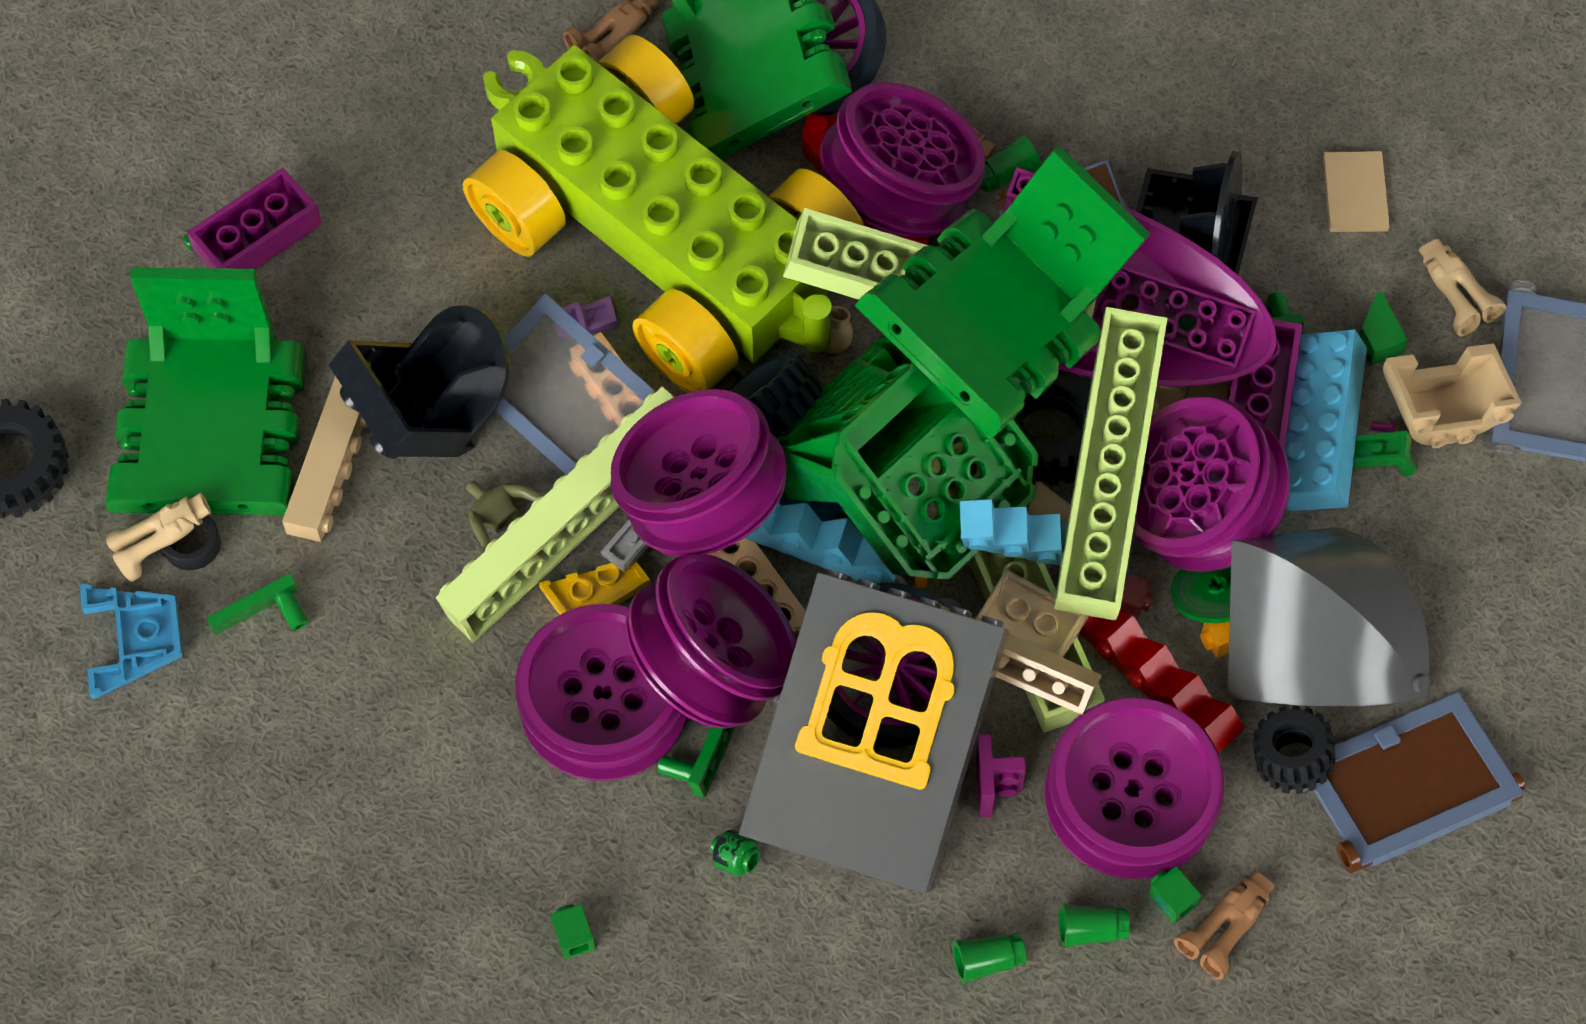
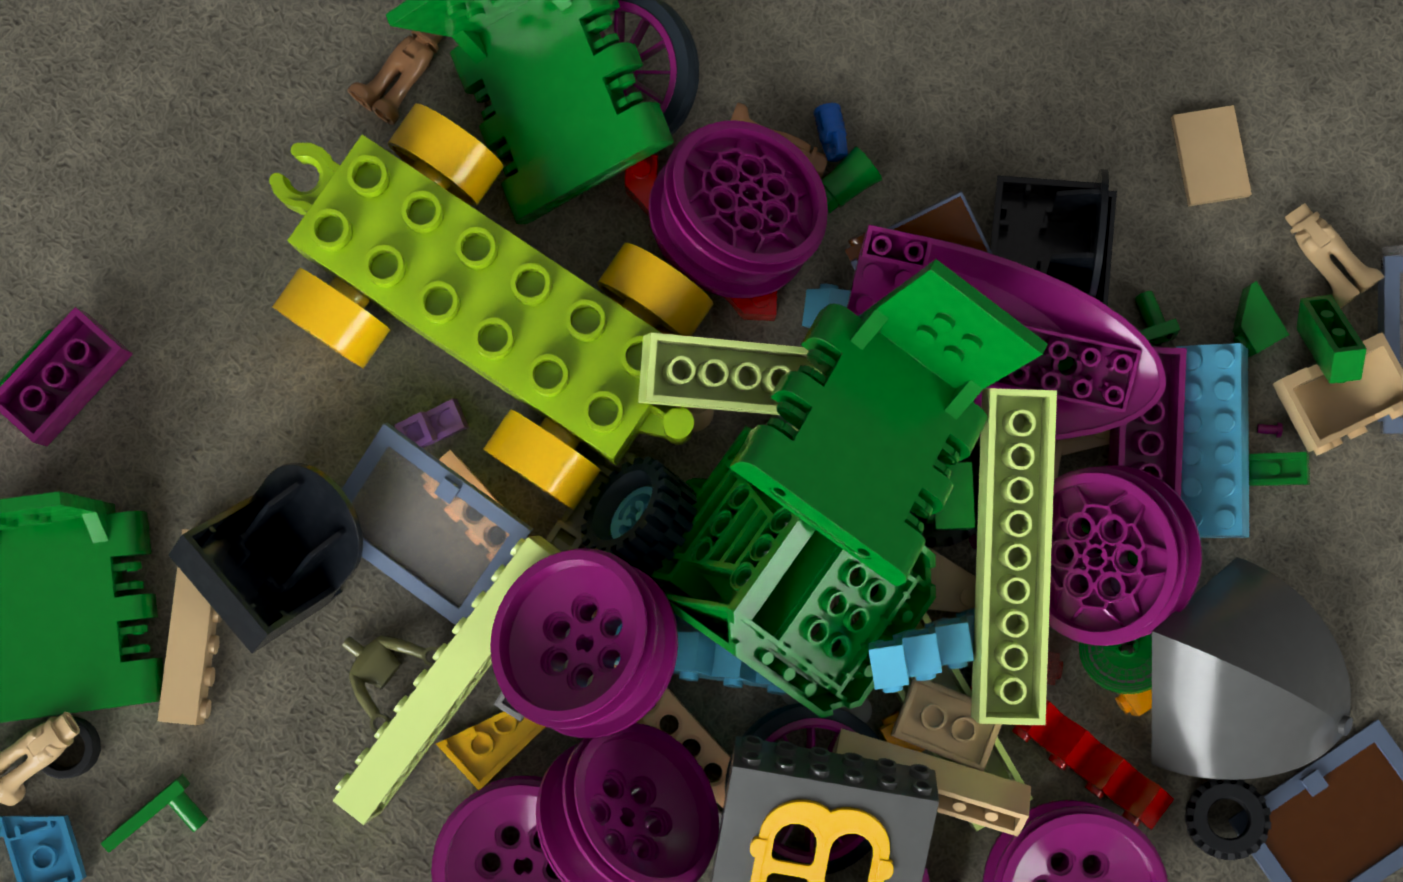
camera: 10 degrees left, 20 degrees up
(1001, 122) = (831, 131): none -> blue hinge
(1062, 417) = (959, 508): none -> green brick
(1444, 343) = (1331, 339): none -> green brick

